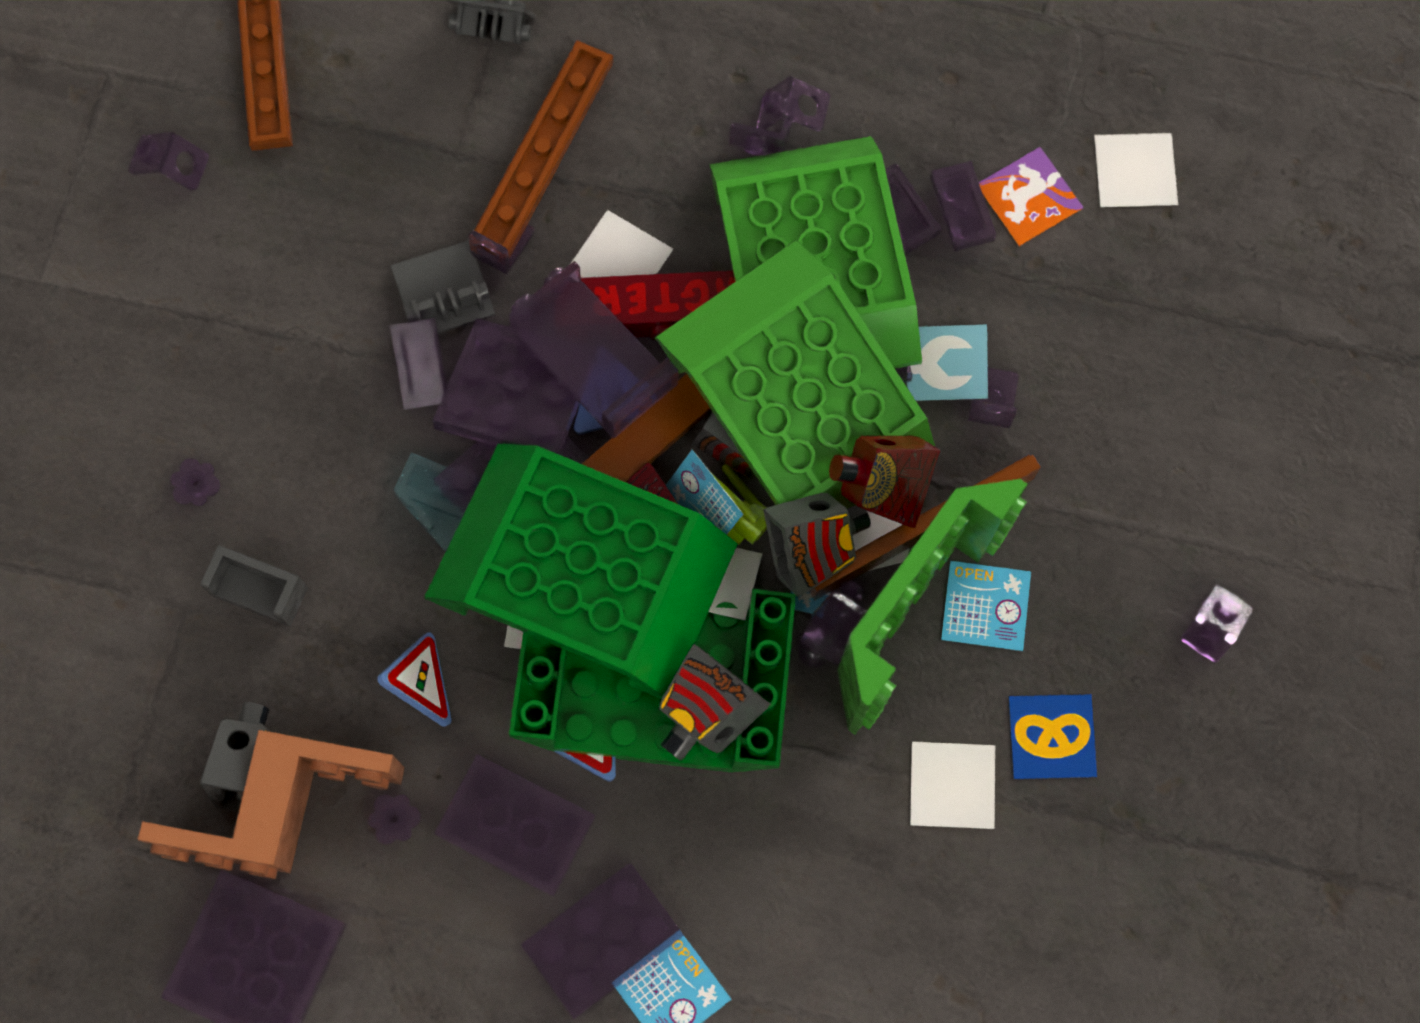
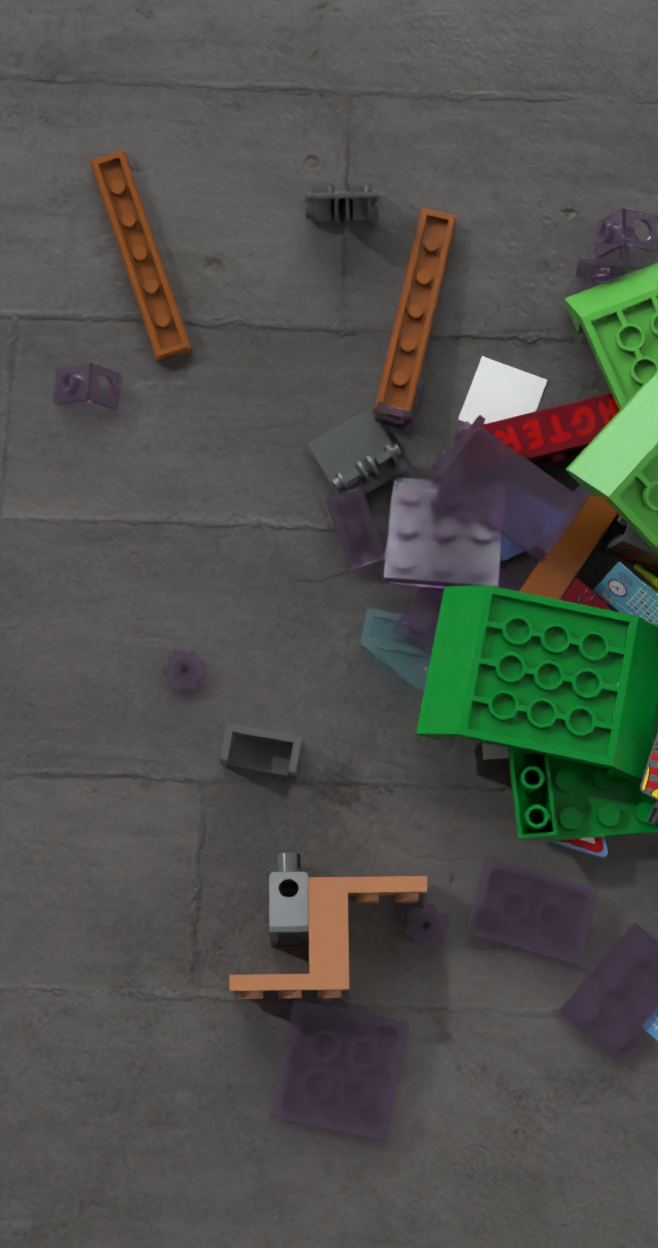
camera: 10 degrees left, 5 degrees up
(419, 680) = (420, 803): piece -> none

